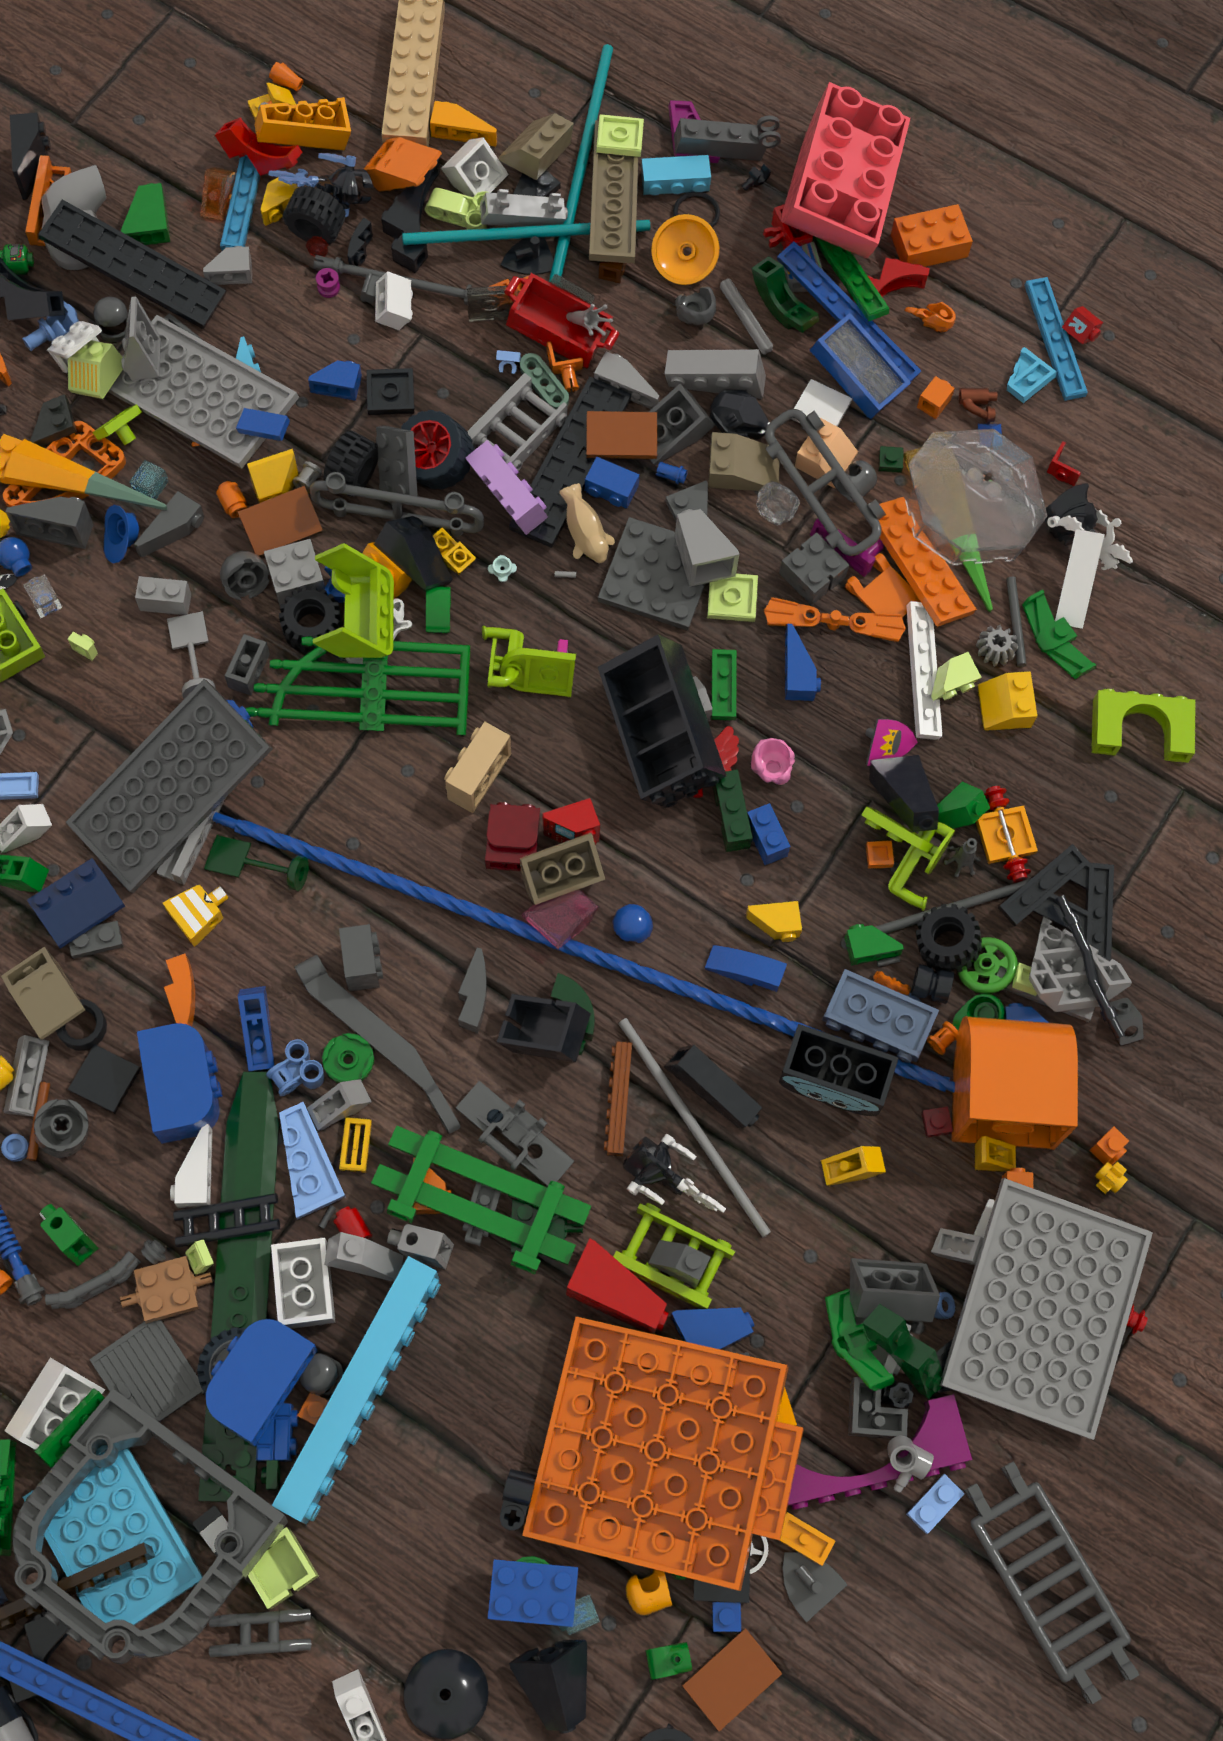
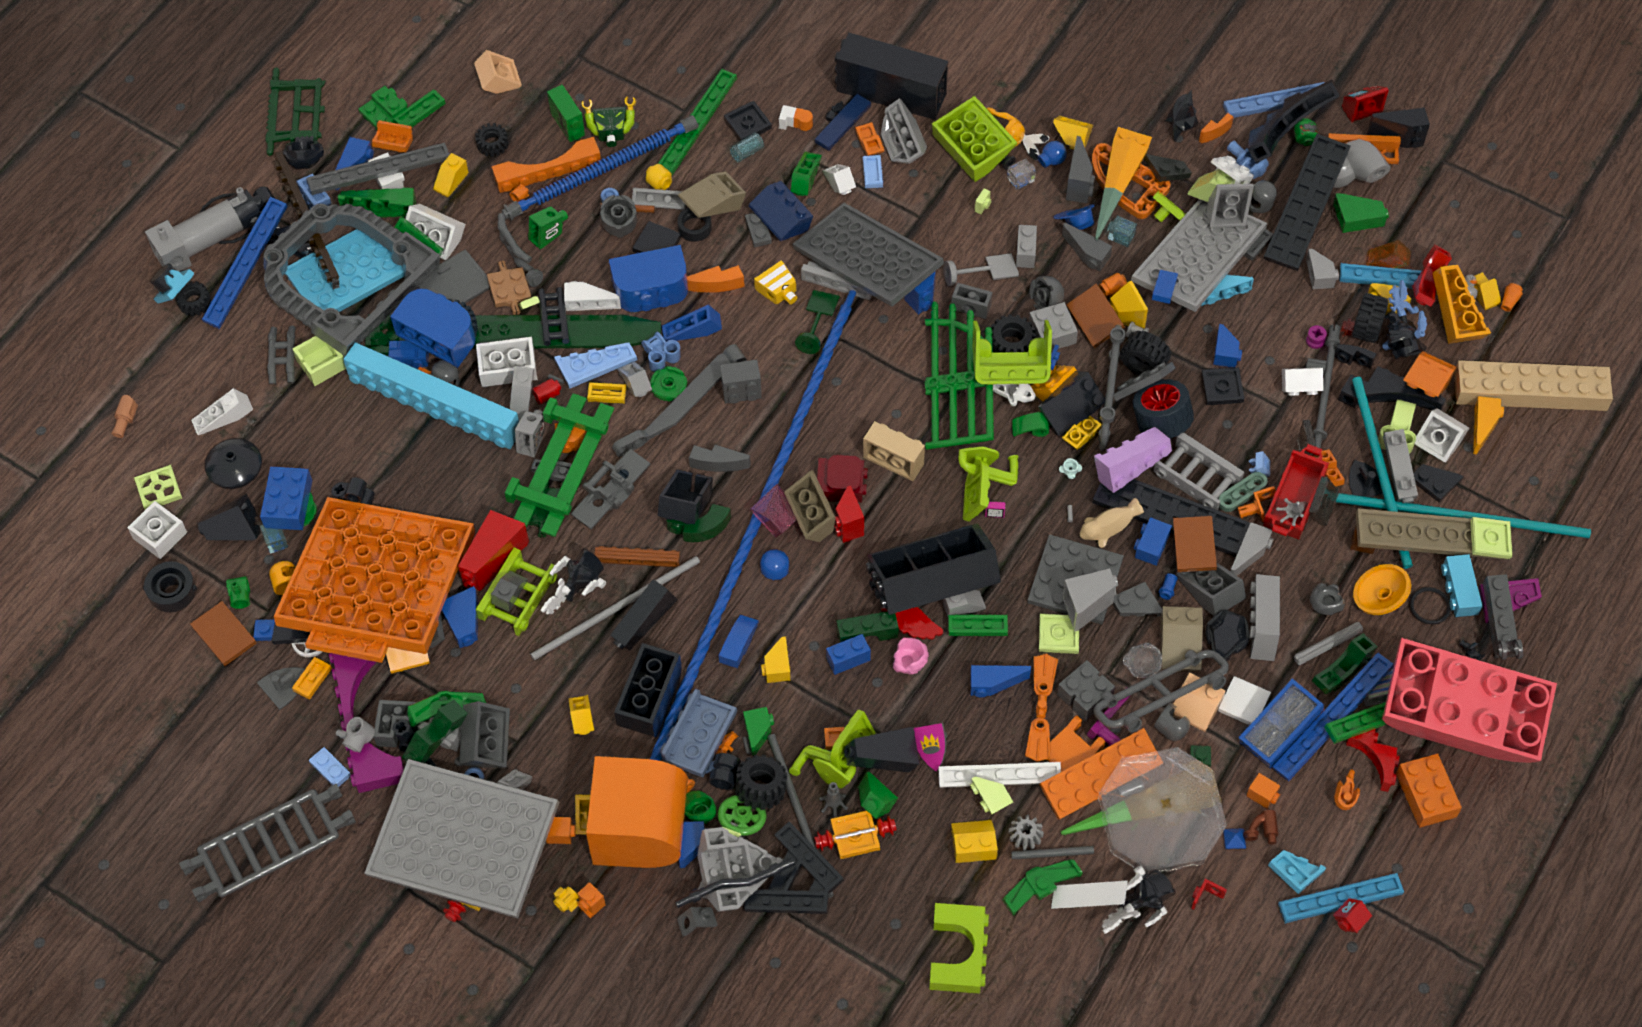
camera: 95 degrees right, 10 degrees down
(539, 145) = (1470, 479): dark tan slope -> none

